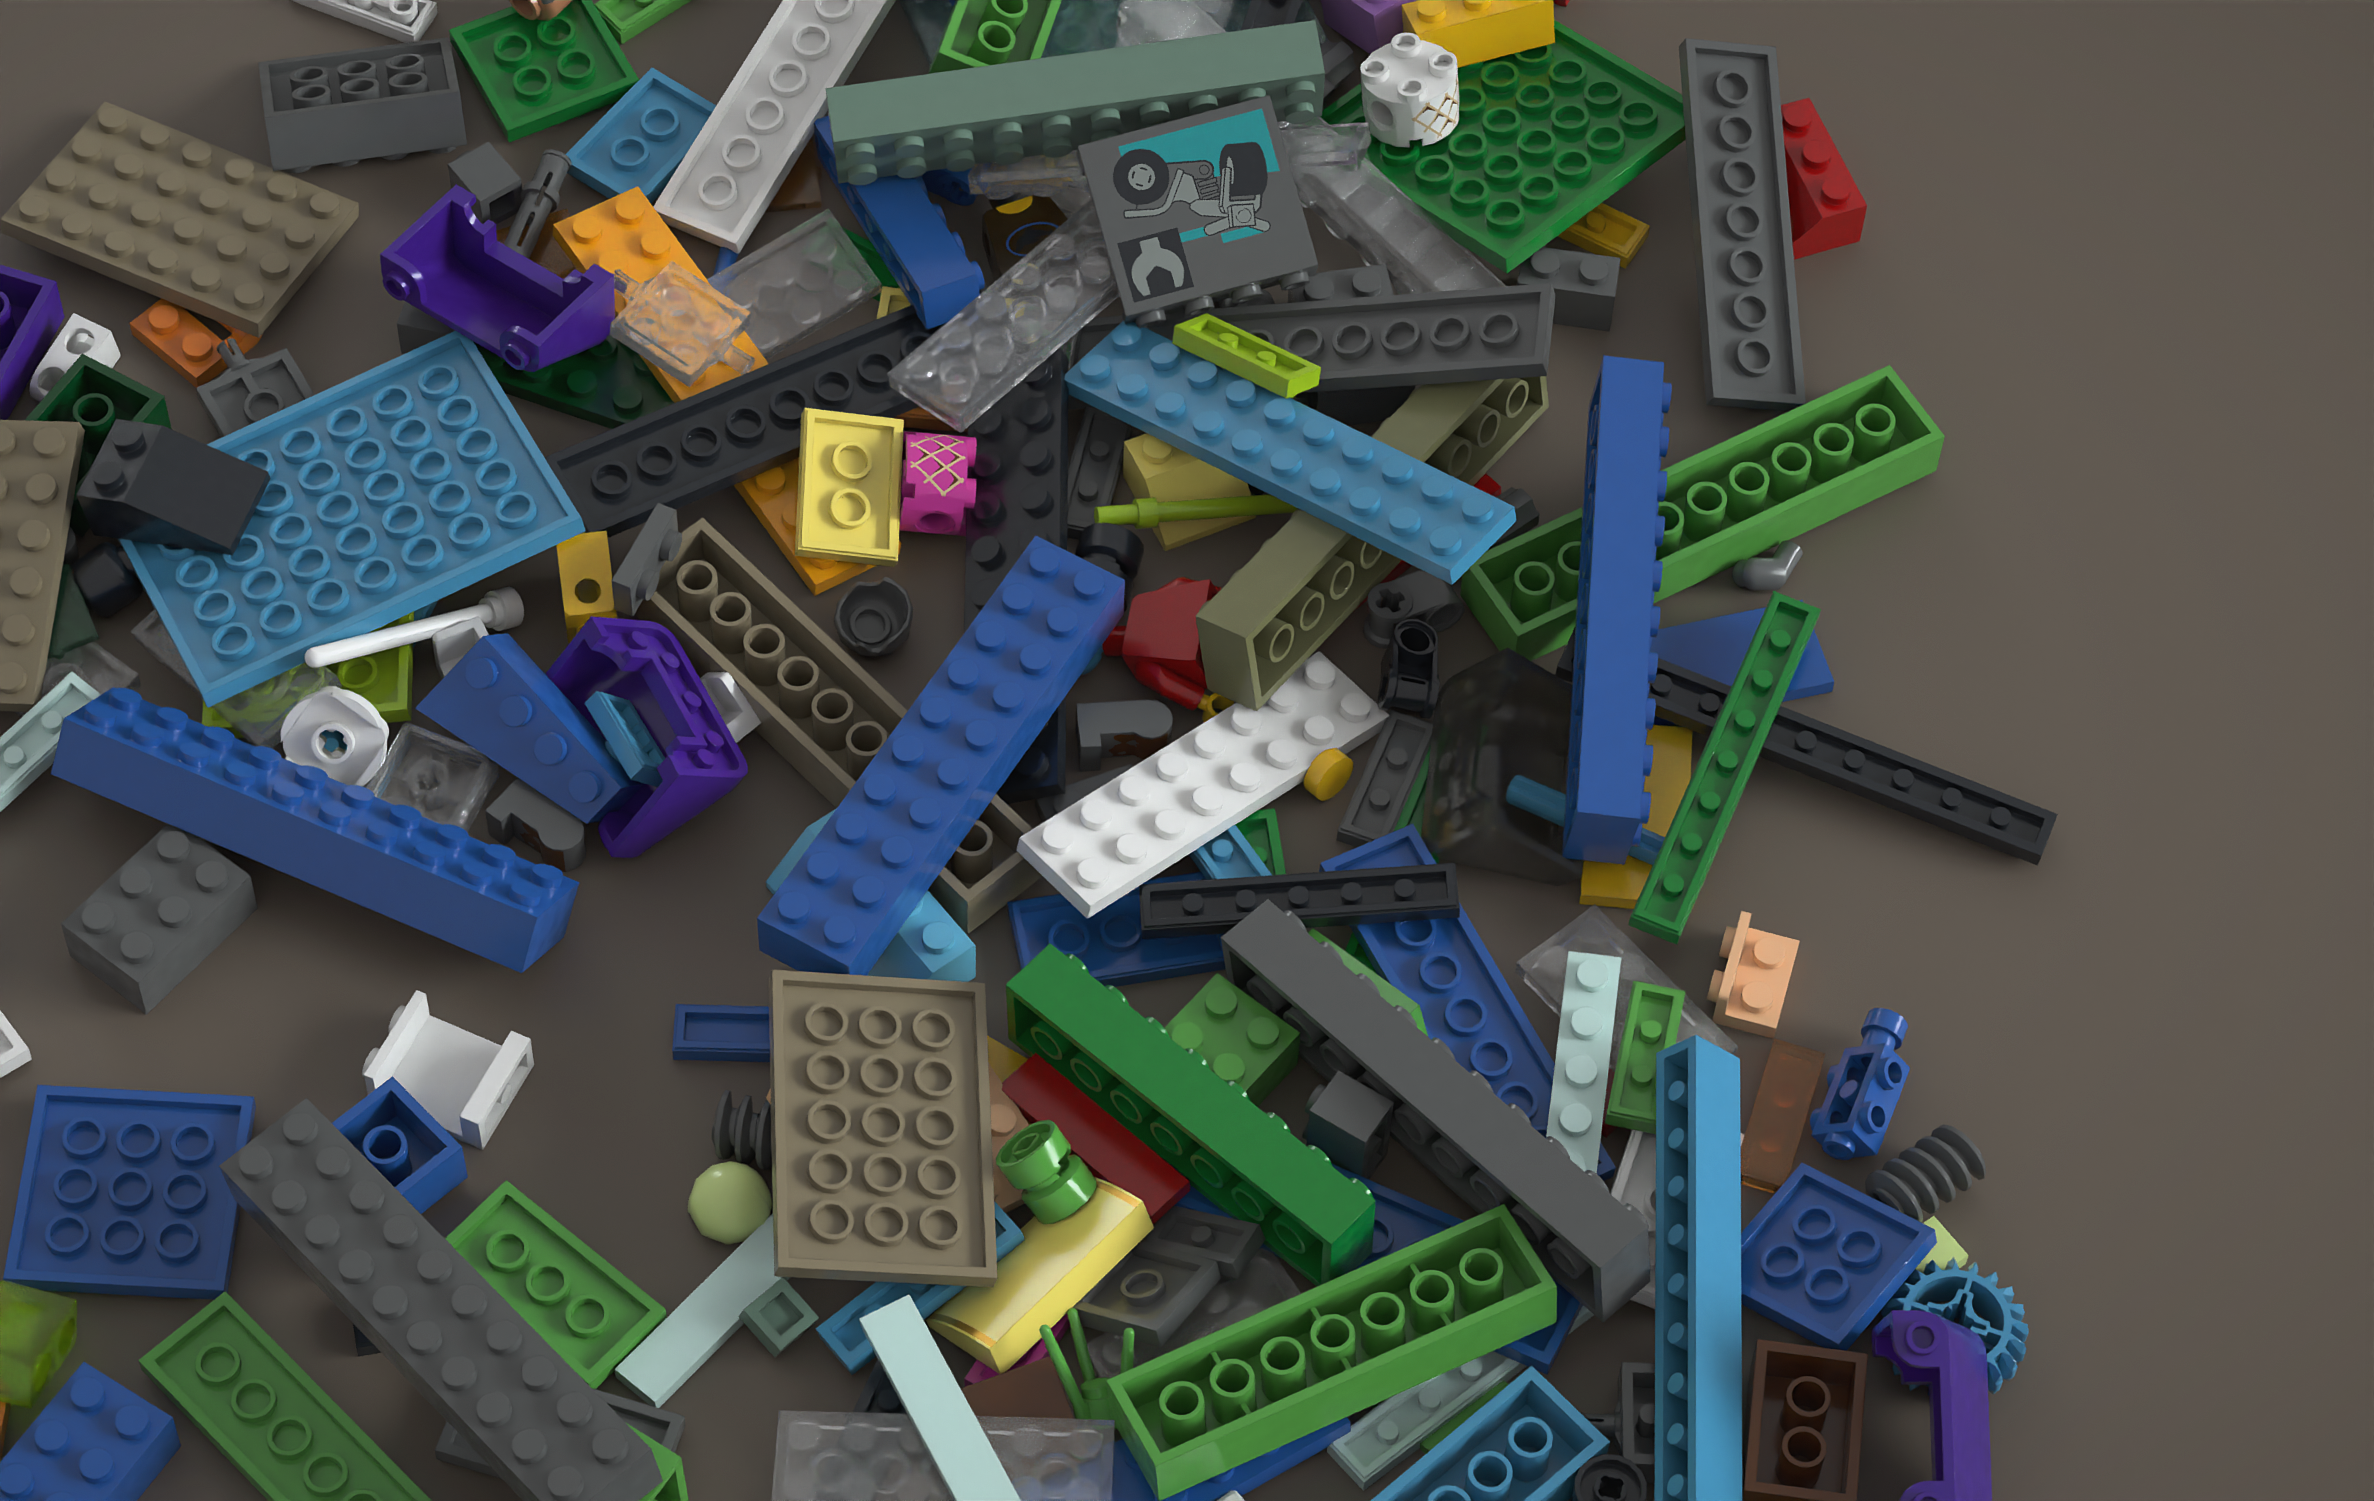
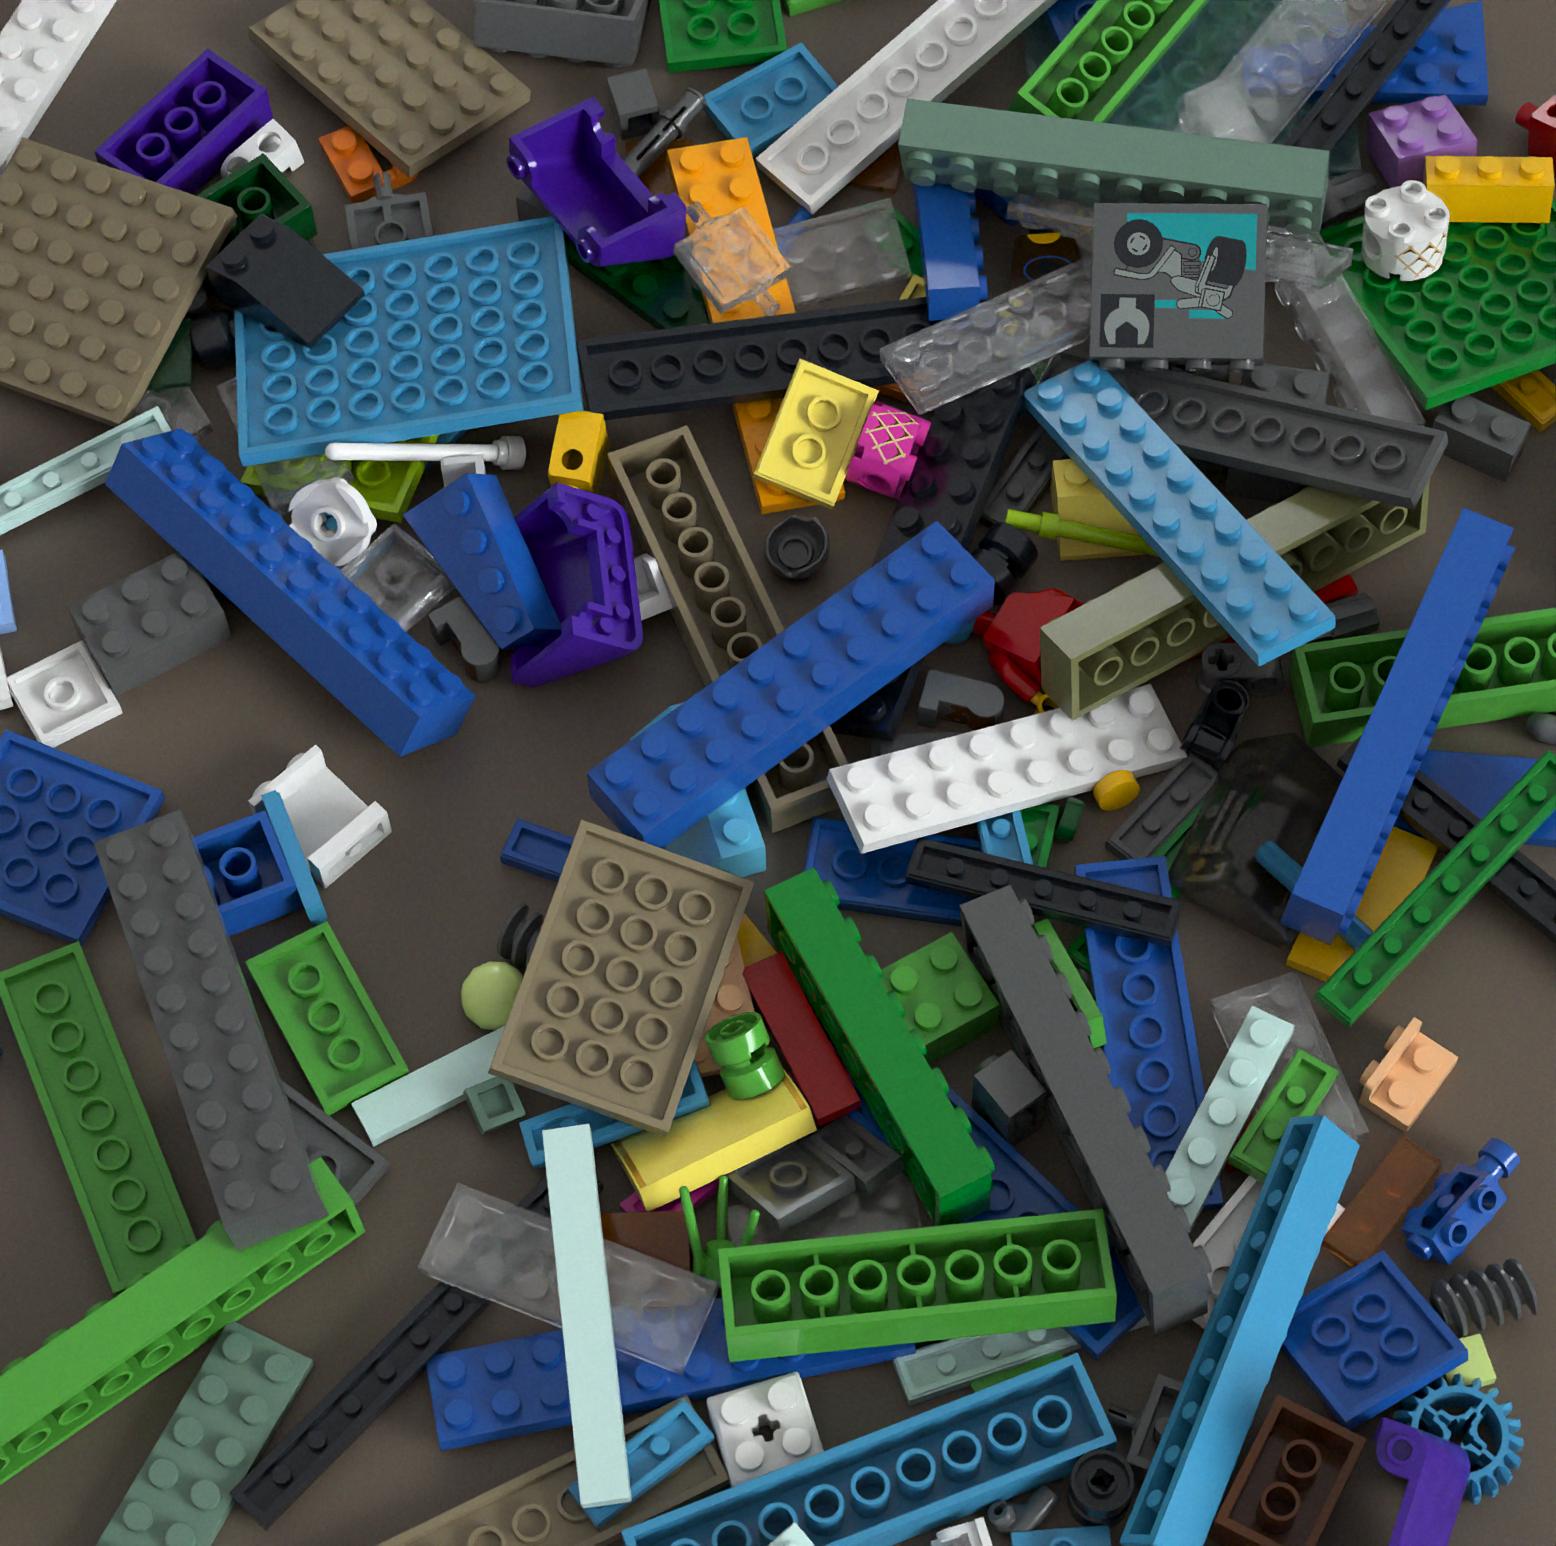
camera: 25 degrees right, 5 degrees up
(86, 1029) = (63, 695): none -> white tile
(479, 1159) = (295, 858): none -> dark azure tile
(627, 737) = (558, 585): dark azure plate -> none
(640, 569) = (623, 447): dark grey plate -> none
(1246, 355) = (1174, 418): lime plate -> none
(1291, 819) = (1069, 820): none -> dark green tile

